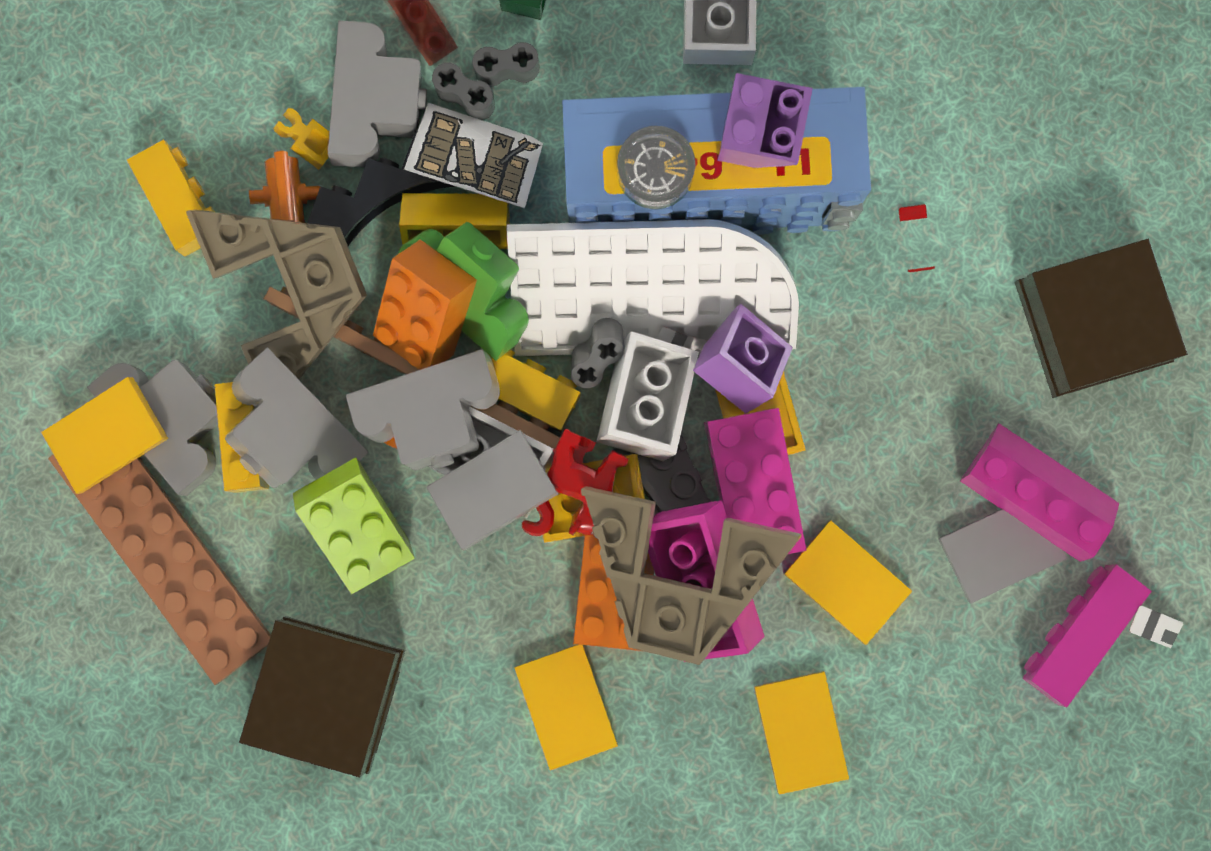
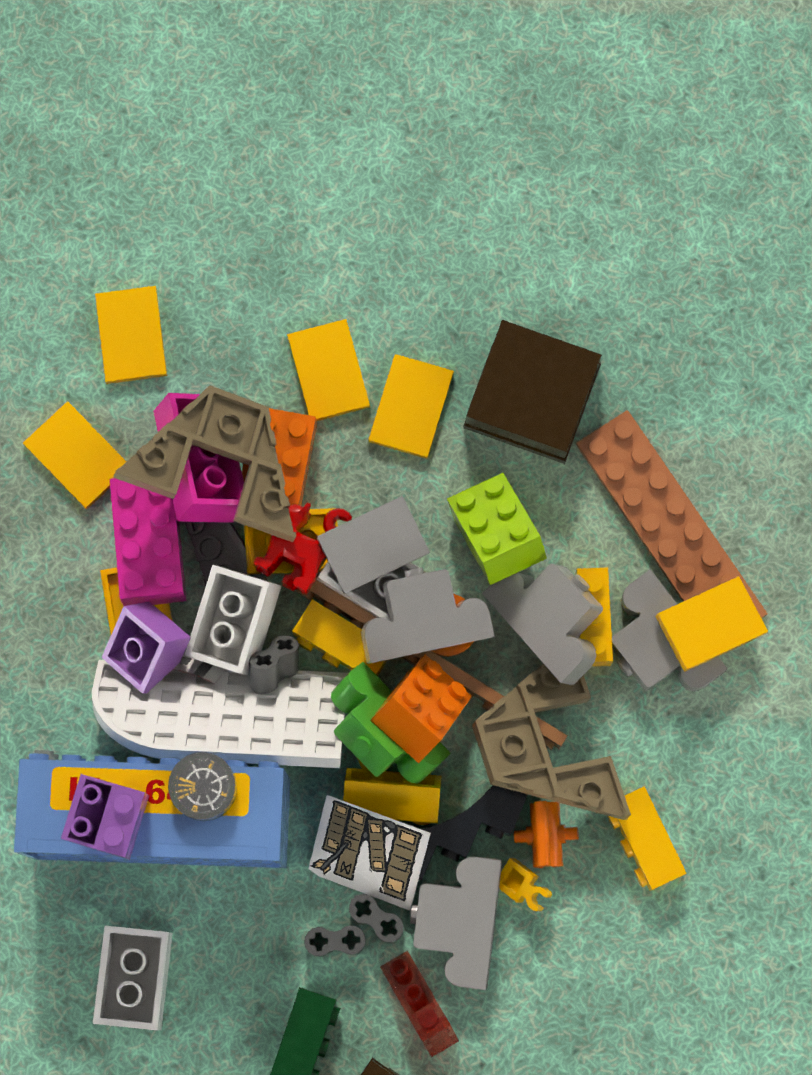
camera: 175 degrees left, 5 degrees down
(466, 671) = (411, 406): none -> yellow tile

